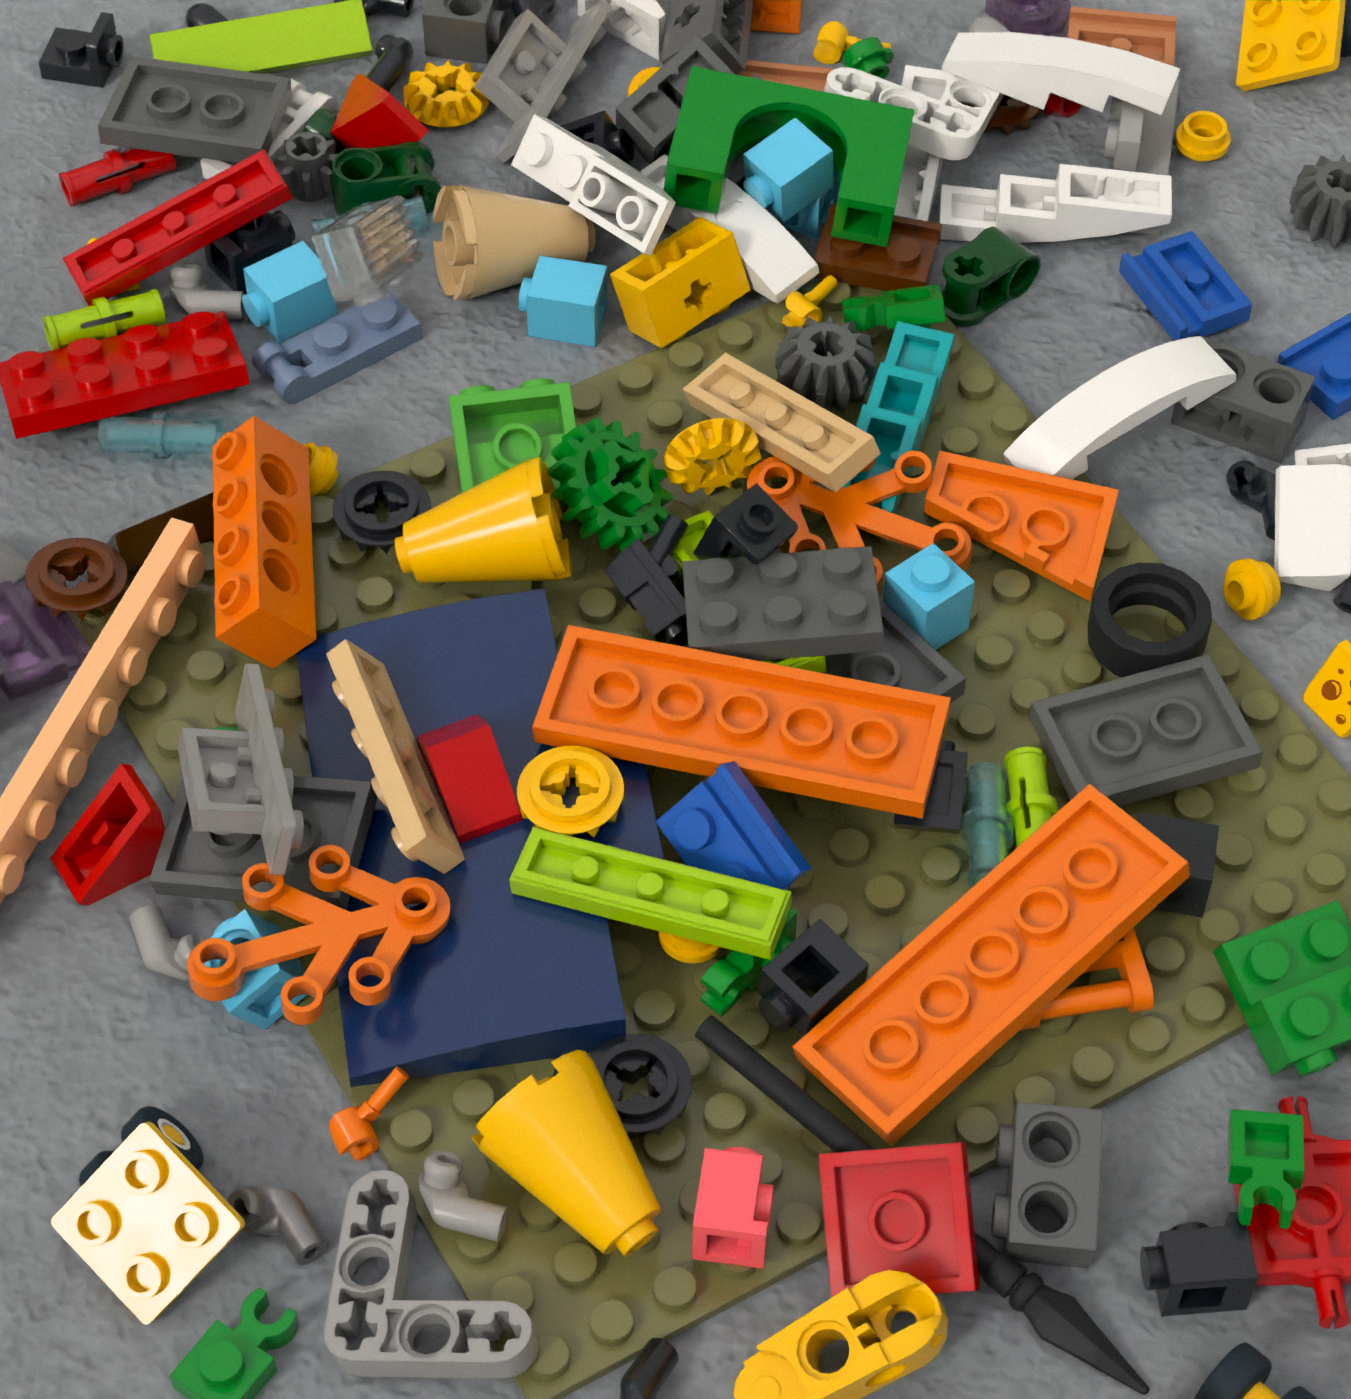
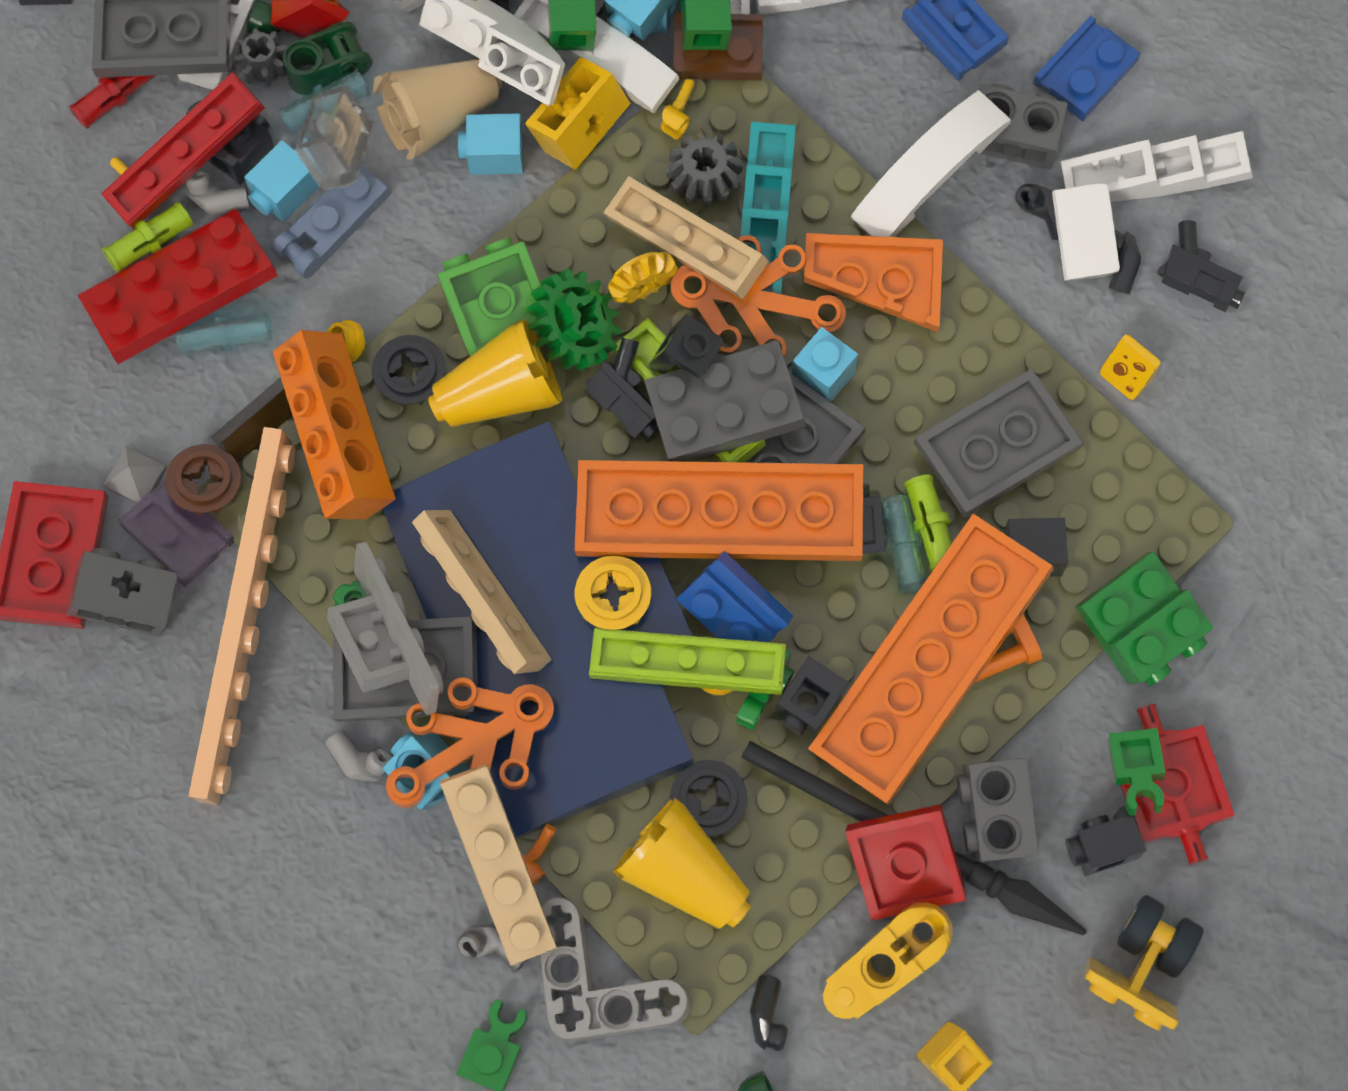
camera: 10 degrees left, 20 degrees up
(112, 840) = (295, 689): red slope -> none
(148, 1214) = (404, 967): plate -> none
(312, 1091) = (498, 864): none -> tan plate
(451, 1201) = (608, 913): light grey arm -> none
(470, 777) = (536, 593): red slope -> none
(732, 1209) = (795, 876): coral brick -> none
(912, 305) = (750, 102): green plate -> none
(986, 276) = (803, 51): dark green piece -> none
(1155, 586) = (991, 315): black tyre -> none
(1251, 588) = (1050, 293): yellow plate -> none

